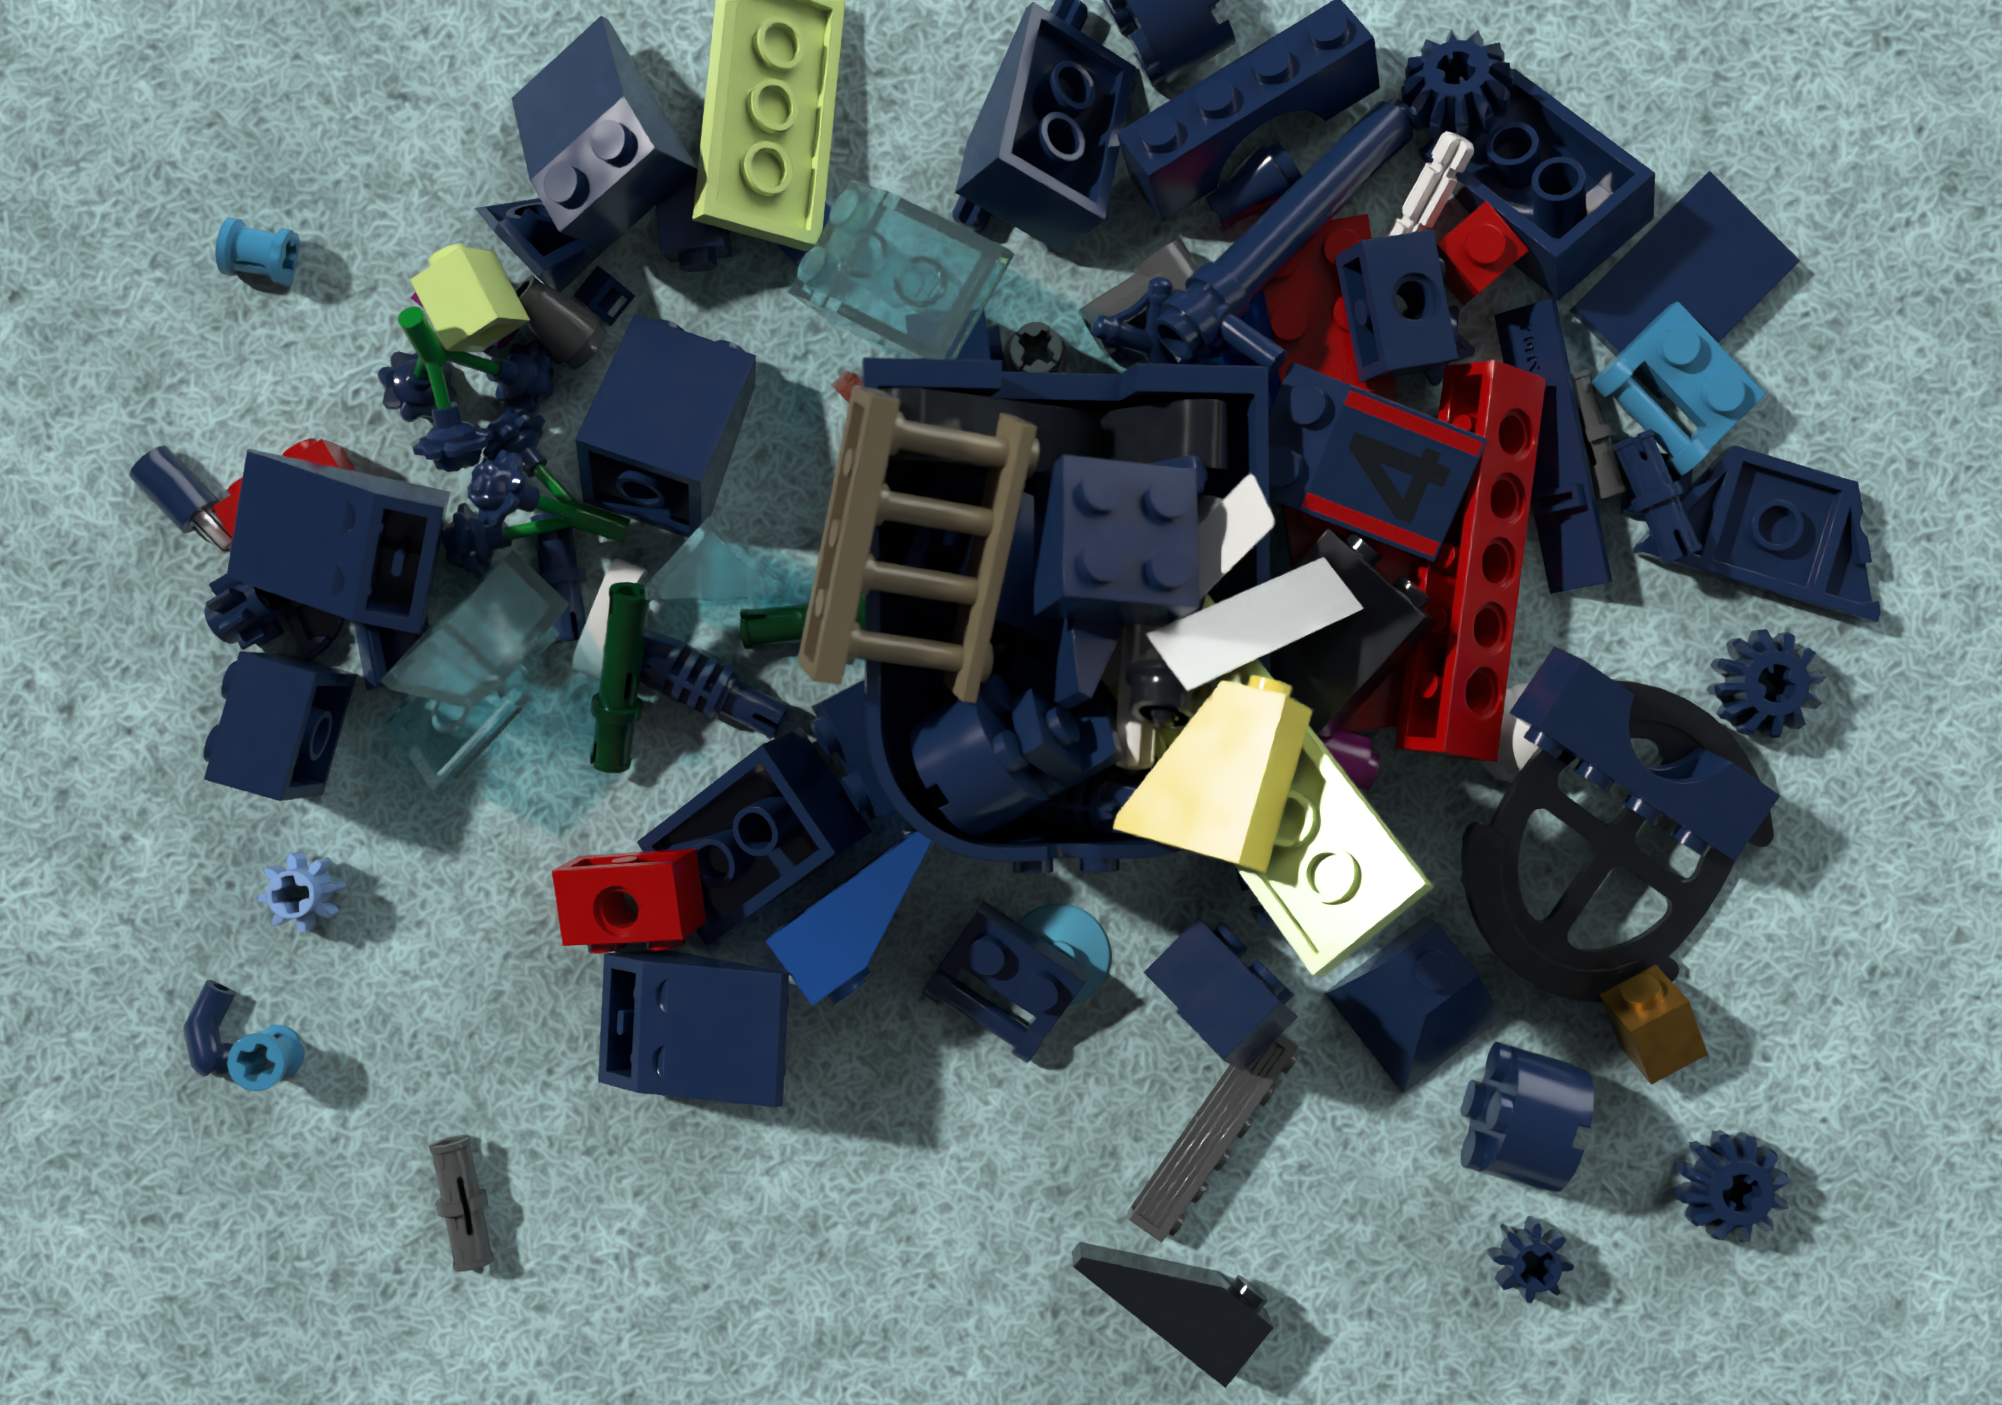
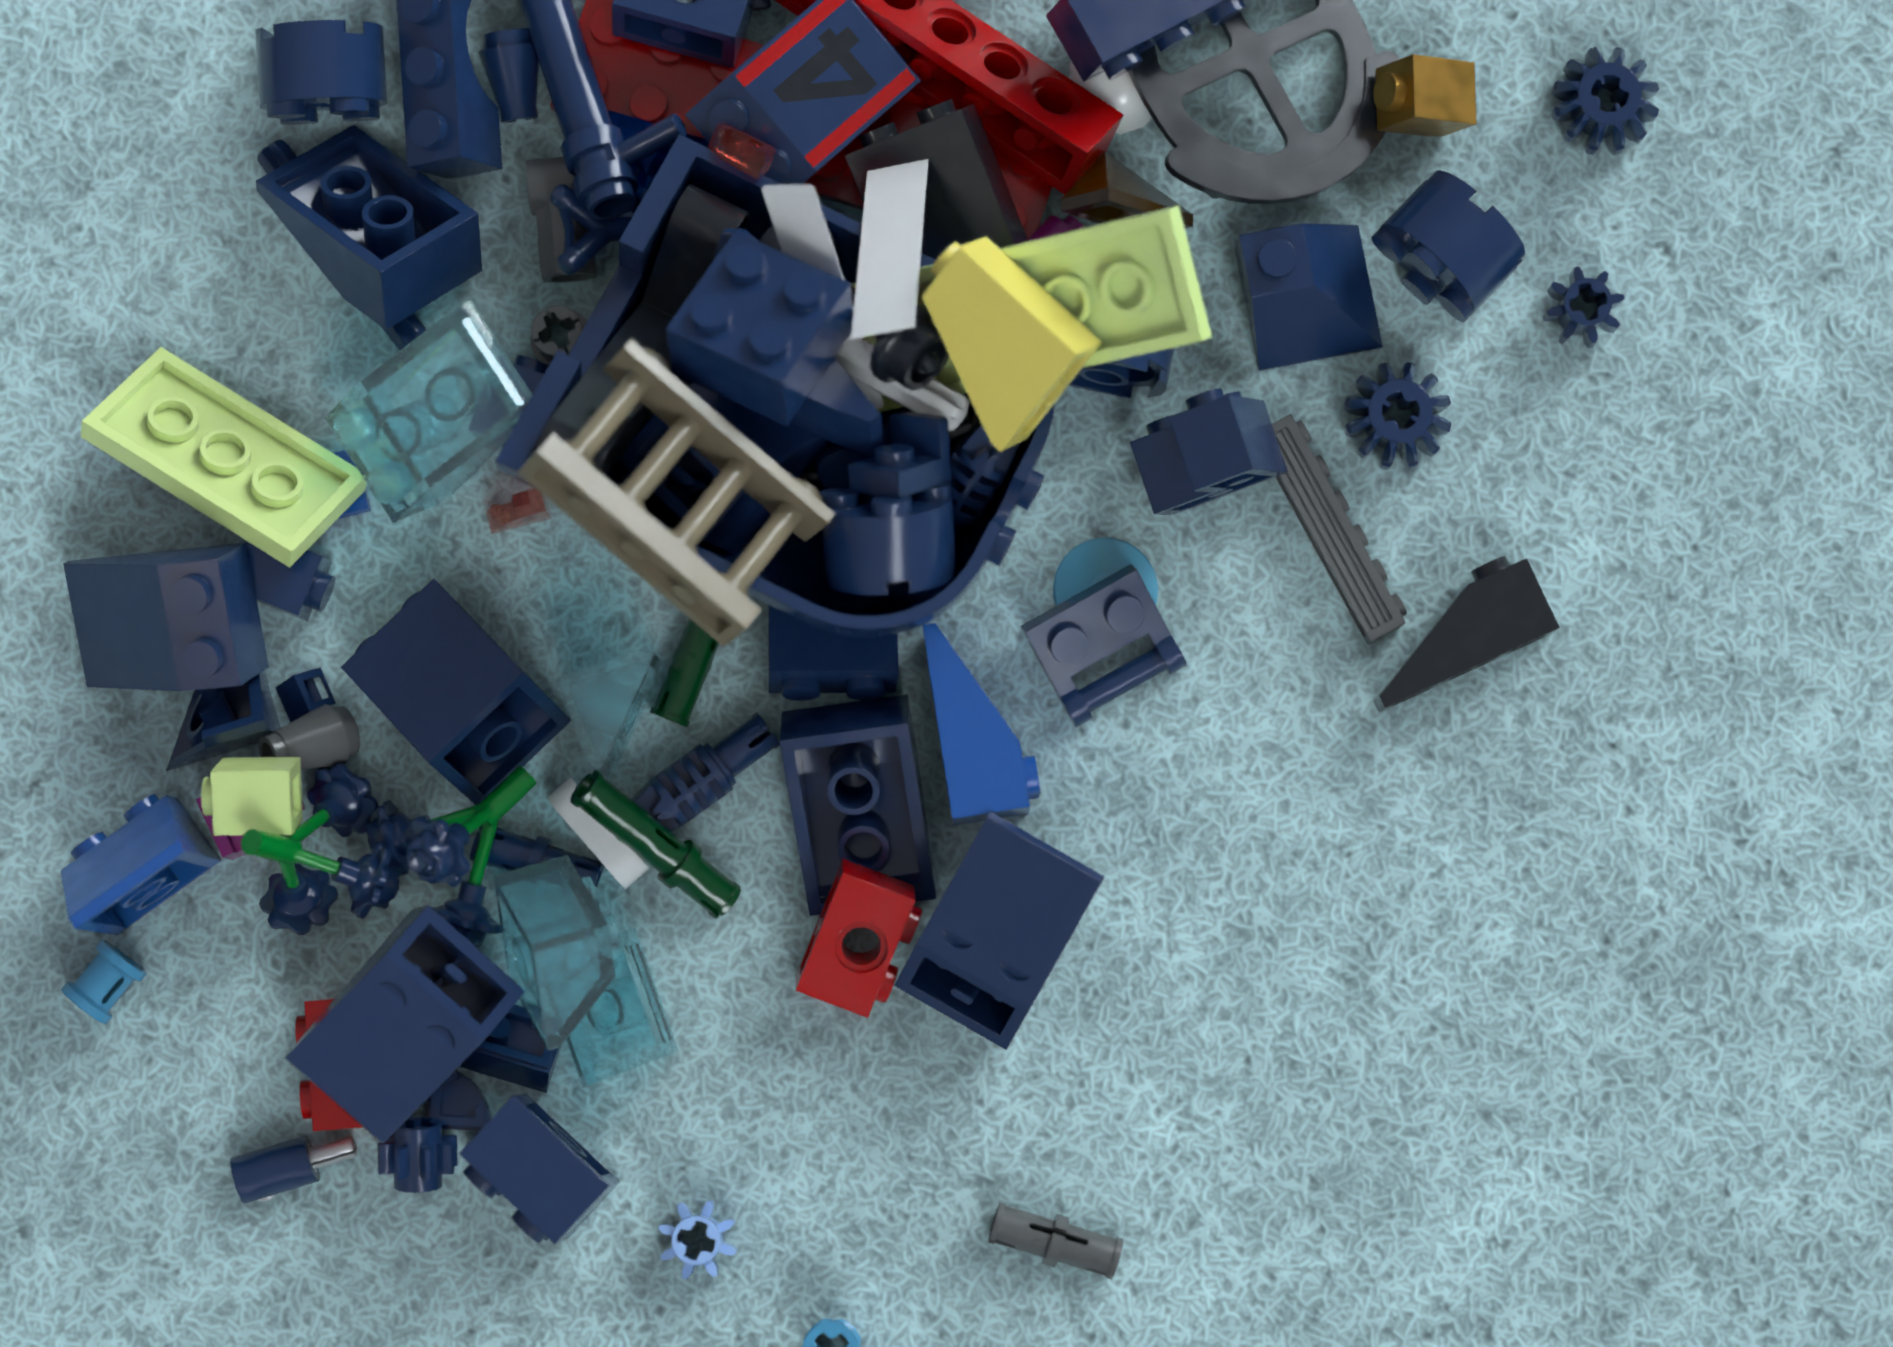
camera: 55 degrees left, 5 degrees down
(356, 218) = (135, 867): none -> blue slope
(1281, 432) = (741, 150): none -> clear red tile
(1321, 1147) = (1387, 434): none -> dark blue gear
(1418, 799) = (1115, 192): none -> dark brown slope

